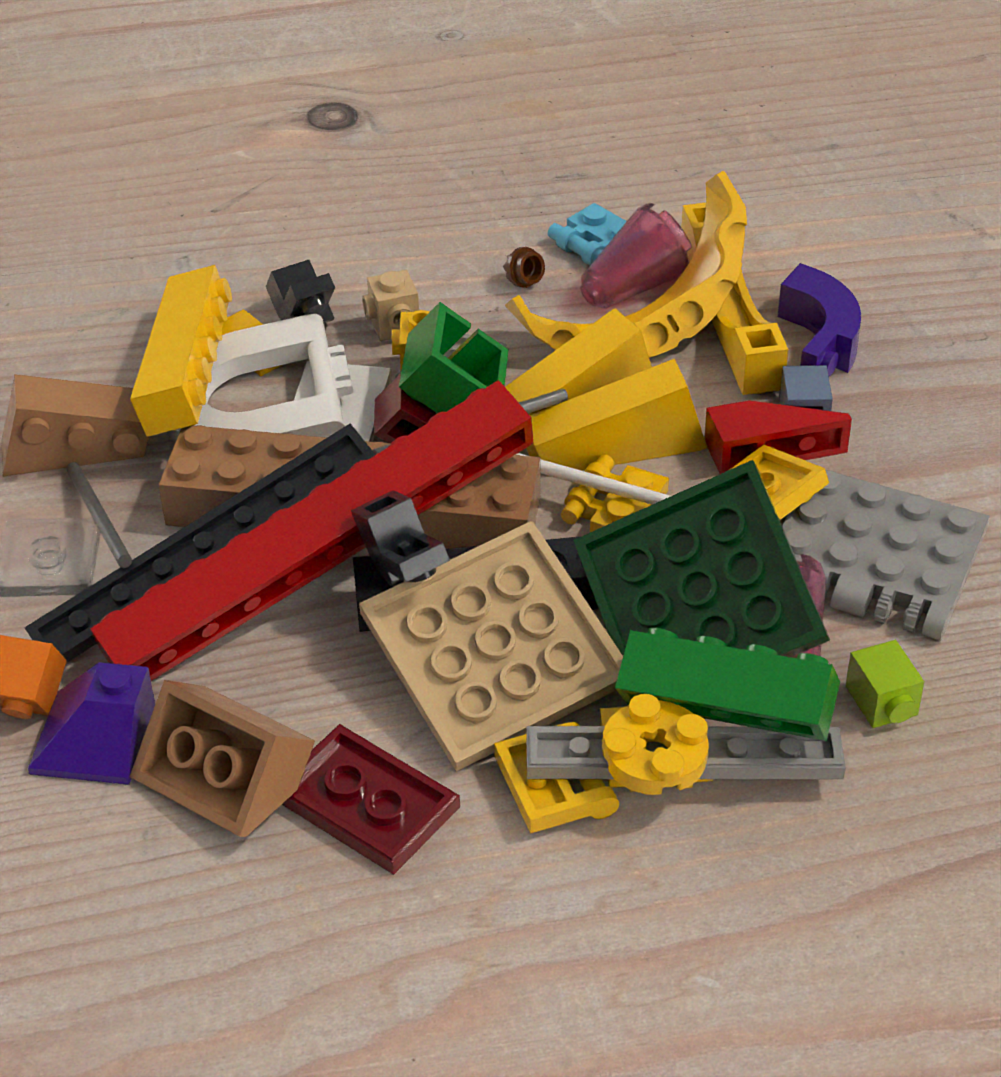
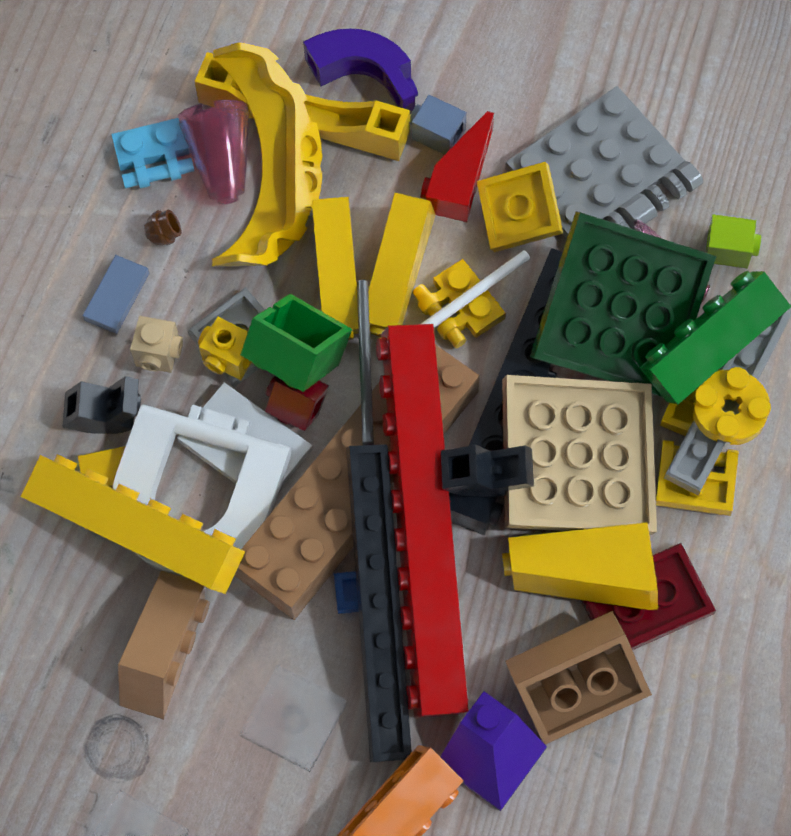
camera: 60 degrees left, 25 degrees up
(99, 515) = (281, 663): dark grey axle -> none
(370, 711) = (587, 564): none -> yellow slope
(437, 270) = (116, 294): none -> sand blue tile

